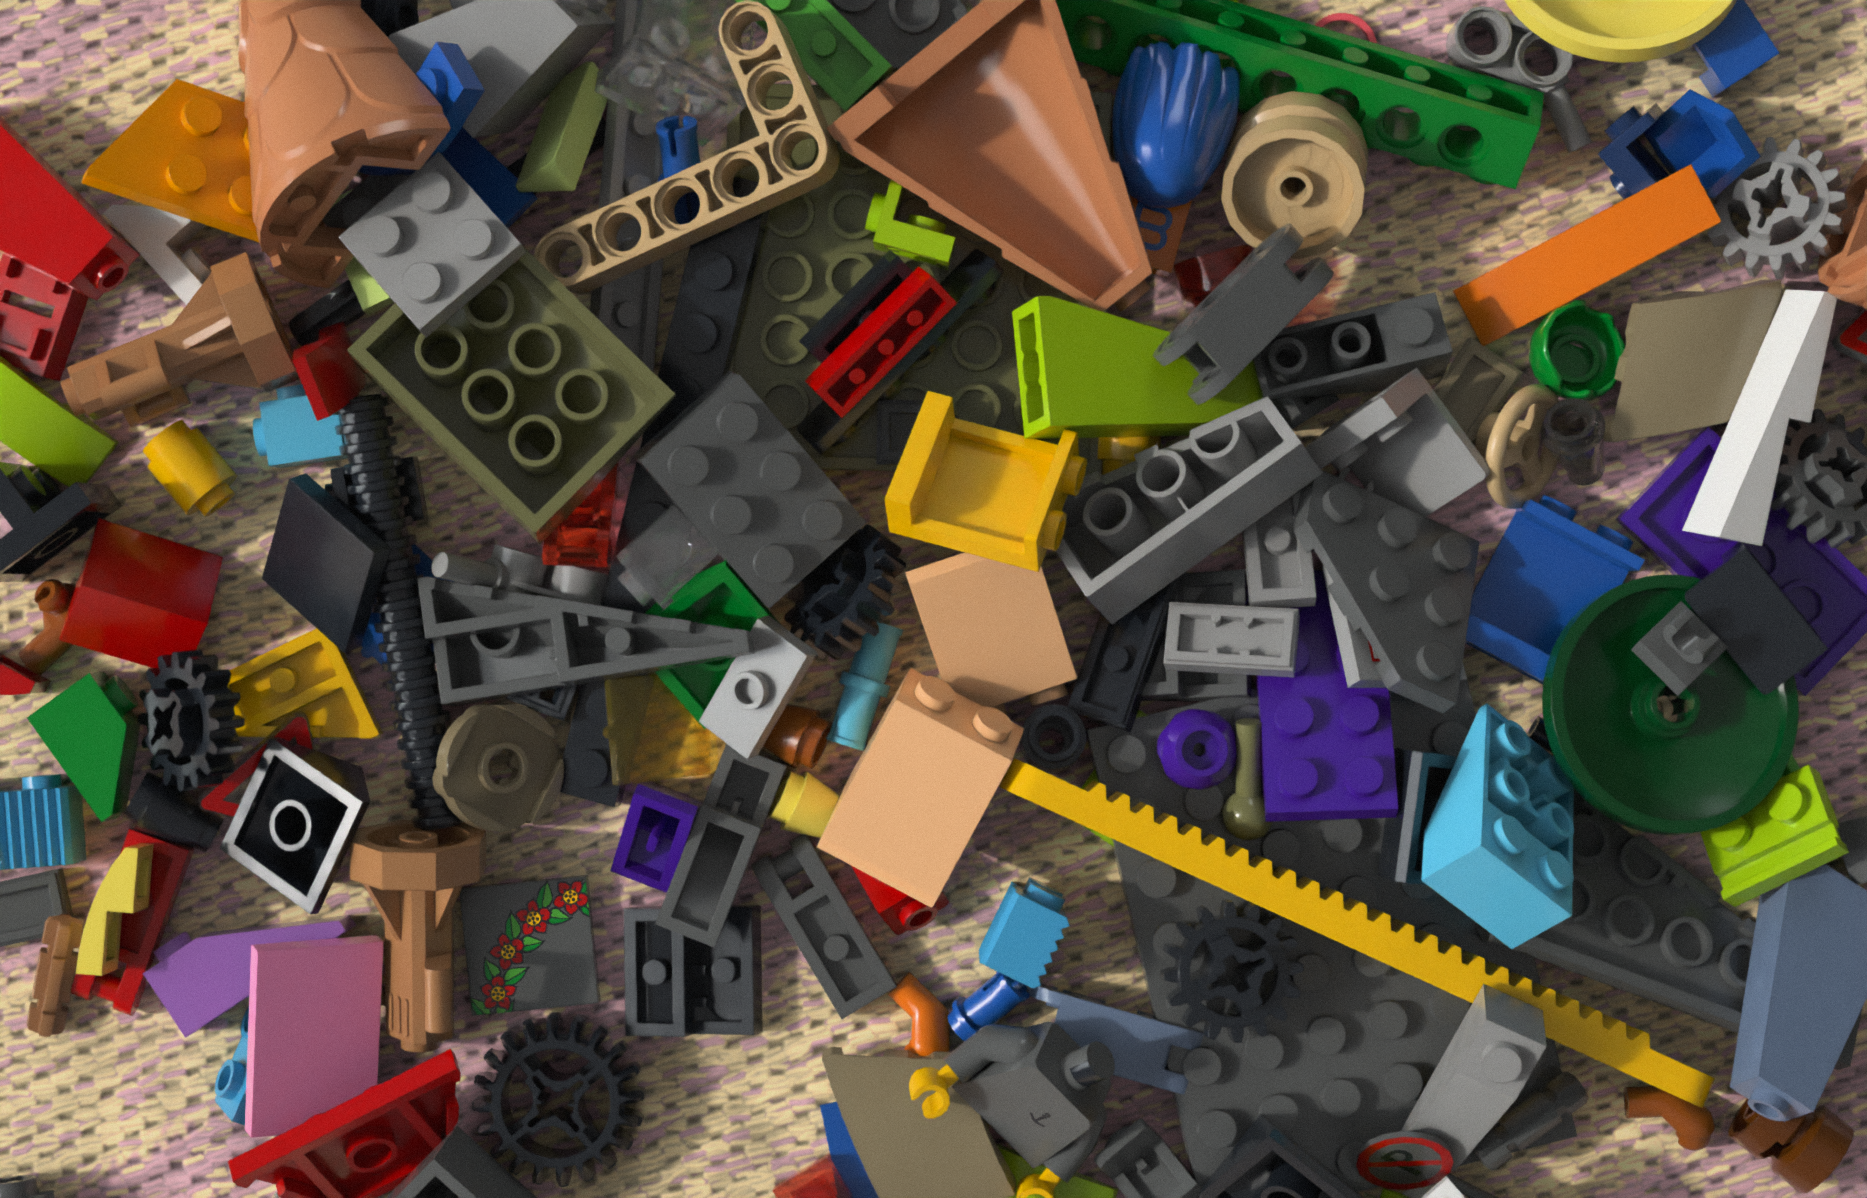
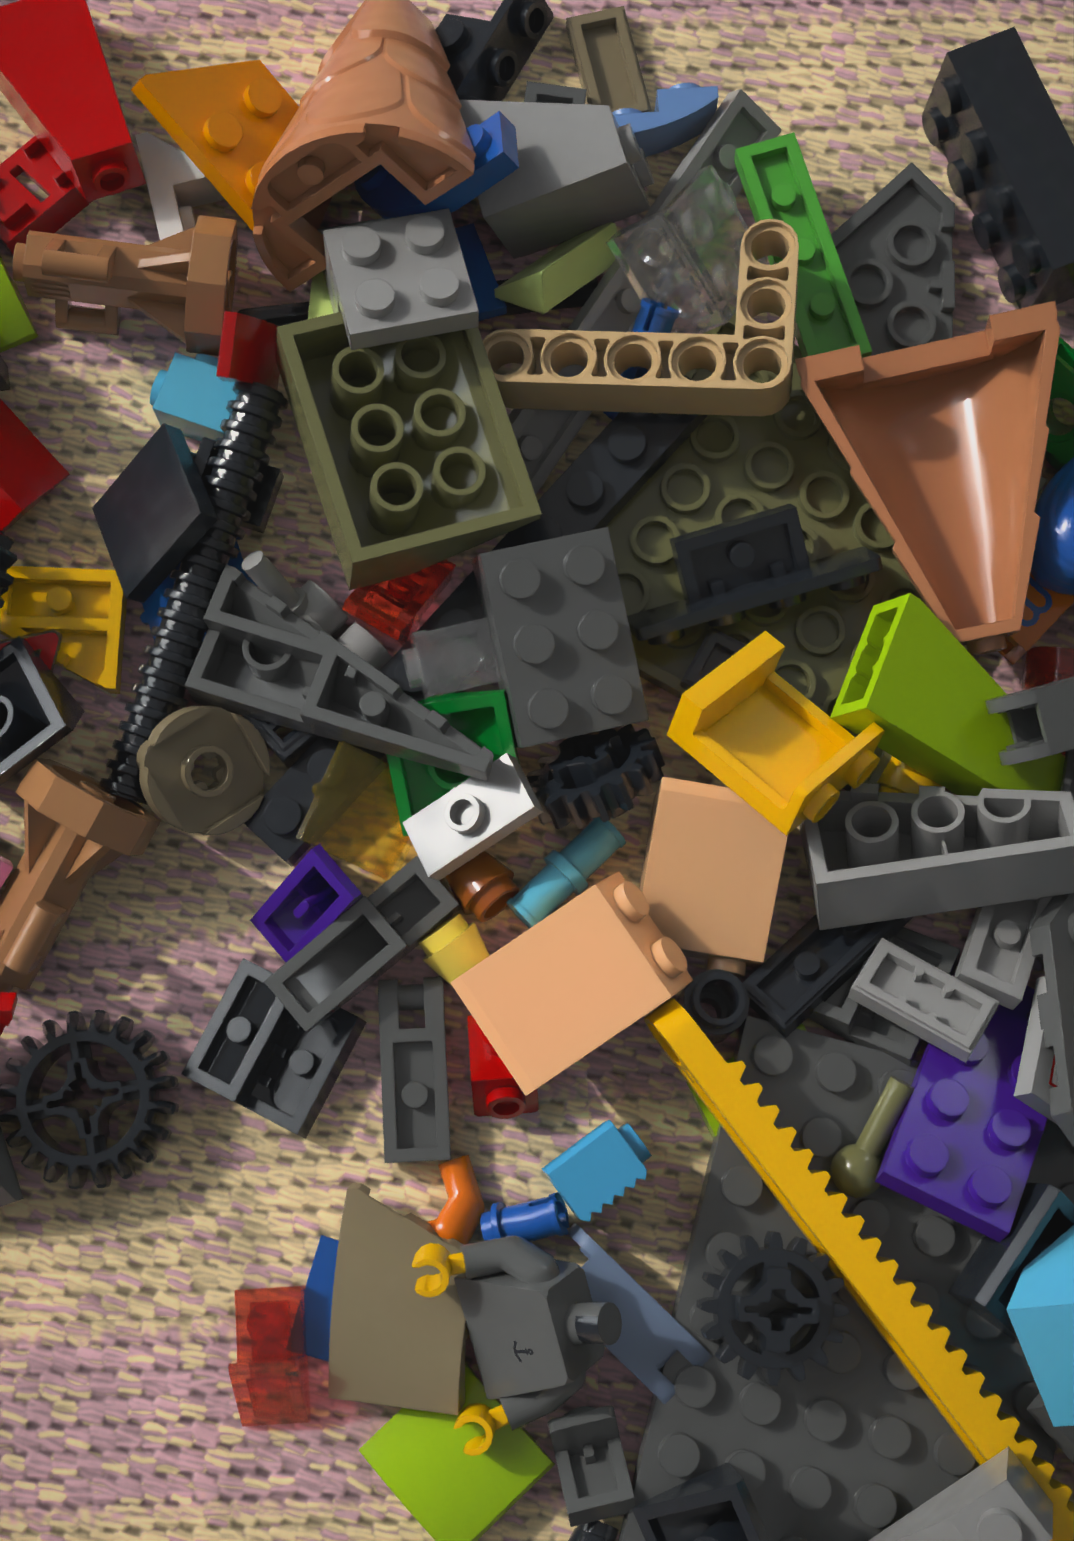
camera: 20 degrees right, 10 degrees down
(190, 469) = (84, 383): yellow brick -> none
(529, 945) = (141, 947): dark grey tile -> none
(880, 341) = (743, 572): red piece -> none
(918, 239) = (820, 507): lime bracket -> none
(1177, 744) = (821, 1088): dark purple plate -> none

